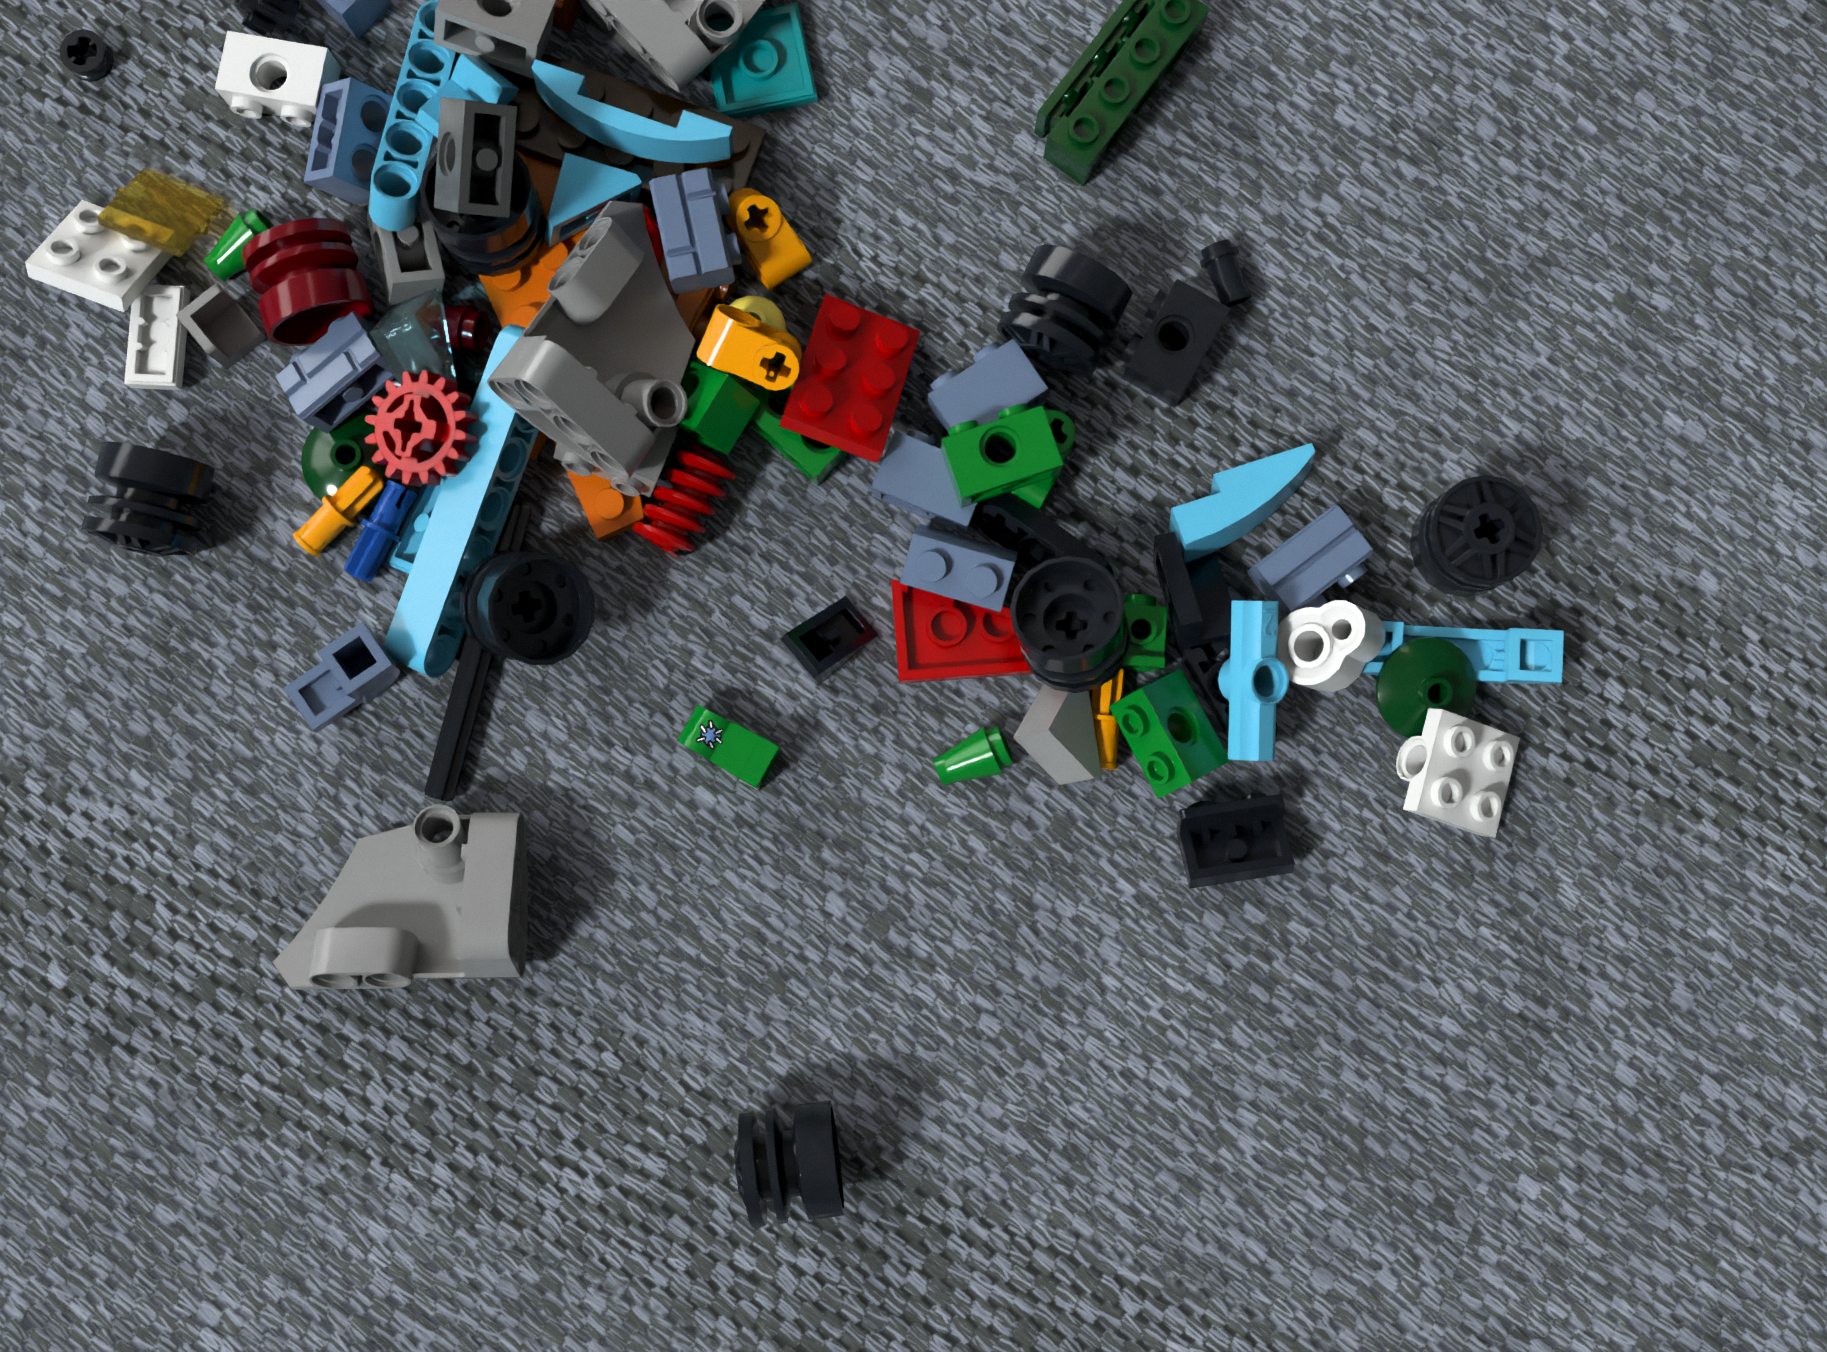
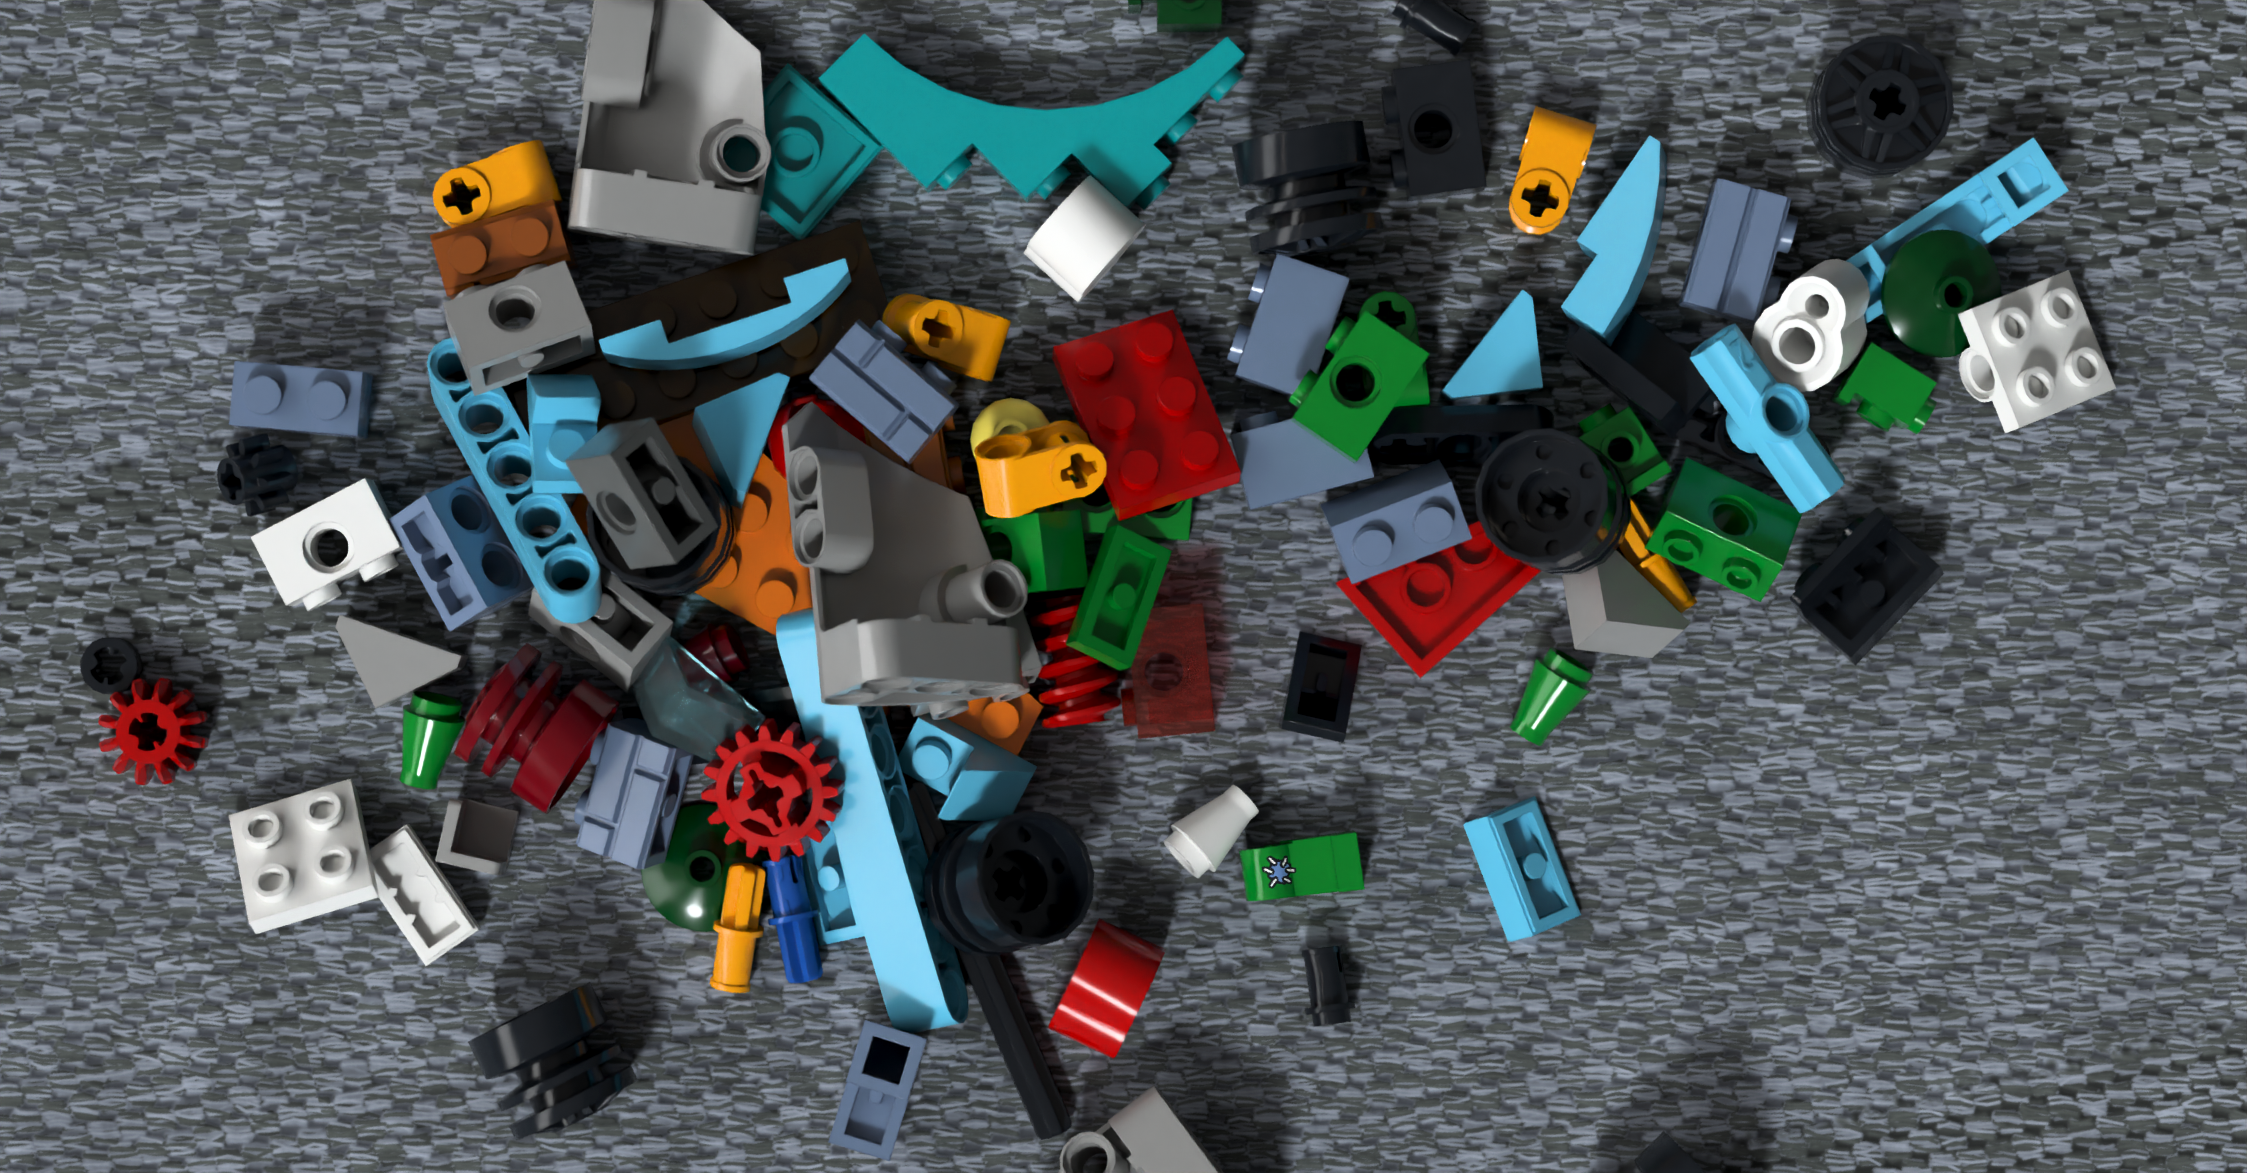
camera: 35 degrees left, 5 degrees up
(89, 124) = (170, 717): none -> red gear
(161, 212) = (322, 767): clear yellow piece -> none
(256, 181) = (393, 662): none -> light grey slope
(540, 726) = (1106, 988): none -> red piece
(561, 517) = (970, 770): none -> medium azure slope
(685, 836) = (1327, 986): none -> black pin
(688, 678) = (1209, 832): none -> white cone
(739, 584) = (1189, 704): none -> clear red brick
(740, 475) = (1118, 597): none -> green plate
(871, 857) = (1522, 869): none -> medium azure slope
(896, 237) = (1084, 238): none -> white piece
(909, 163) = (1113, 141): none -> teal arch
(1105, 517) = (1503, 359): none -> medium azure slope
(1232, 417) = (1551, 161): none -> light orange piece
(1343, 725) = (1887, 391): none -> green brick

